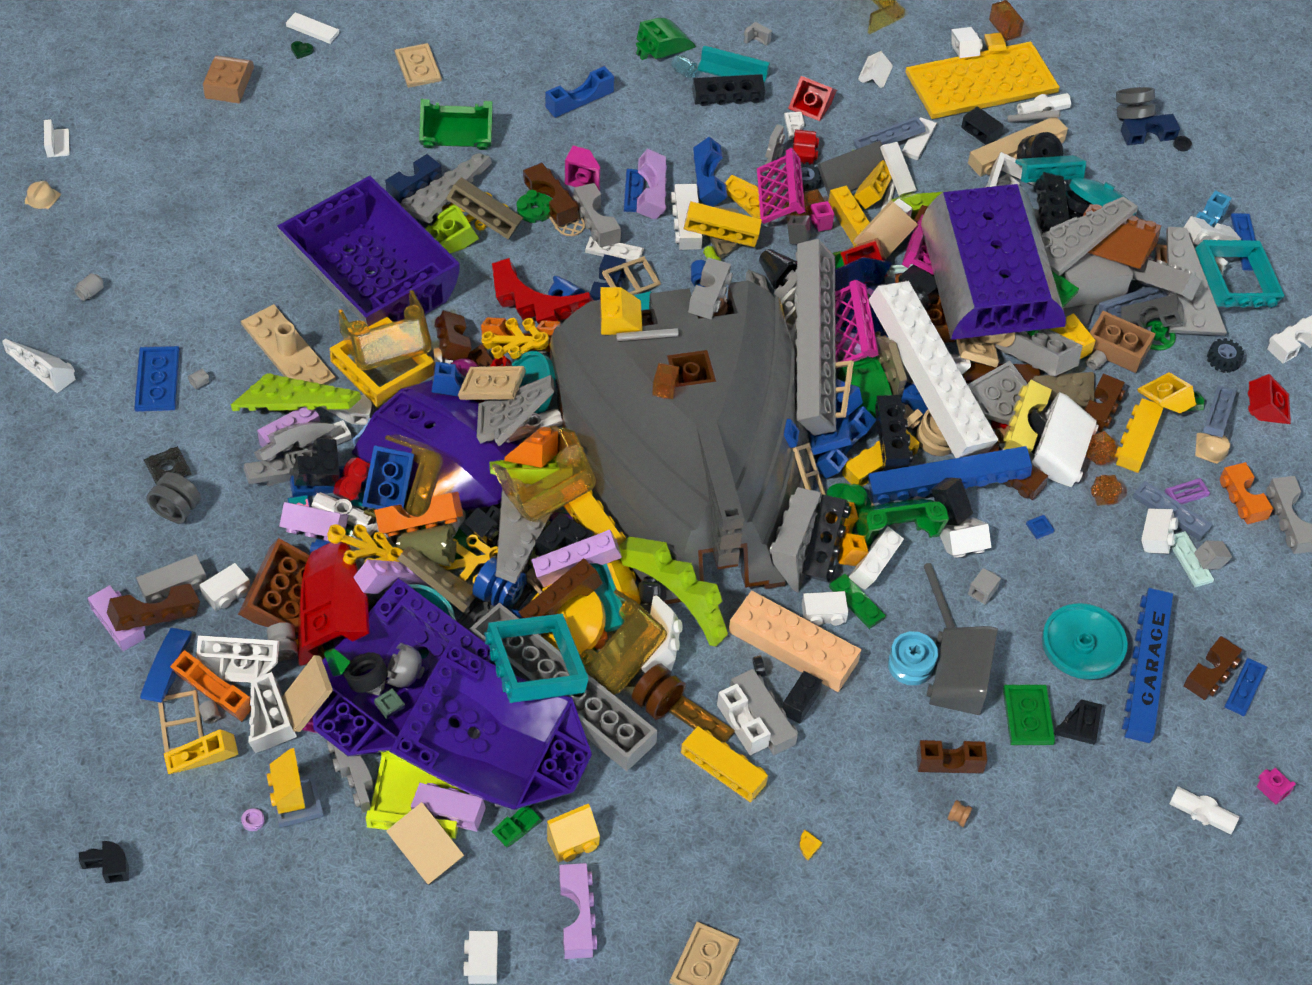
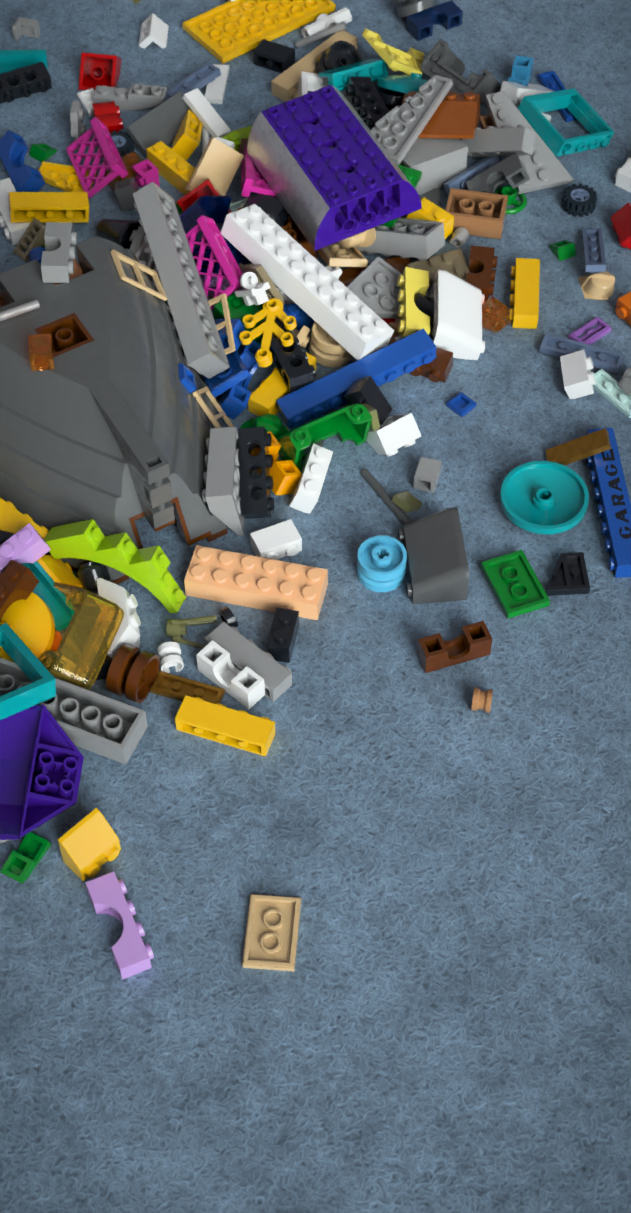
camera: 15 degrees left, 0 degrees up
(482, 957) = (32, 1007): white brick -> none
(696, 685) = (170, 656): none -> white wheel
(704, 243) = (35, 235): none -> dark tan slope
(712, 661) = (178, 627): none -> olive plant
(734, 163) = (41, 151): none -> green slope
(777, 335) = (140, 284): none -> tan window
(809, 844) = (340, 779): yellow tile -> none
(836, 133) = (132, 99): none -> light grey slope
(858, 601) = (308, 526): green plate -> none
(880, 364) = (253, 291): none -> white hips
(882, 403) = (271, 309): none -> yellow plant
(950, 525) = (375, 425): none -> olive tile
(956, 606) = (406, 501): none -> olive tile
(1096, 162) = (394, 57): none -> light yellow wing
(1106, 490) = (513, 351): clear orange brick -> none
(1134, 604) = (580, 448): none -> pearl gold tile
(1141, 185) = (444, 63): none -> dark grey windscreen
(1170, 392) = (542, 245): yellow slope -> none
(1182, 143) = (468, 26): black tile -> none

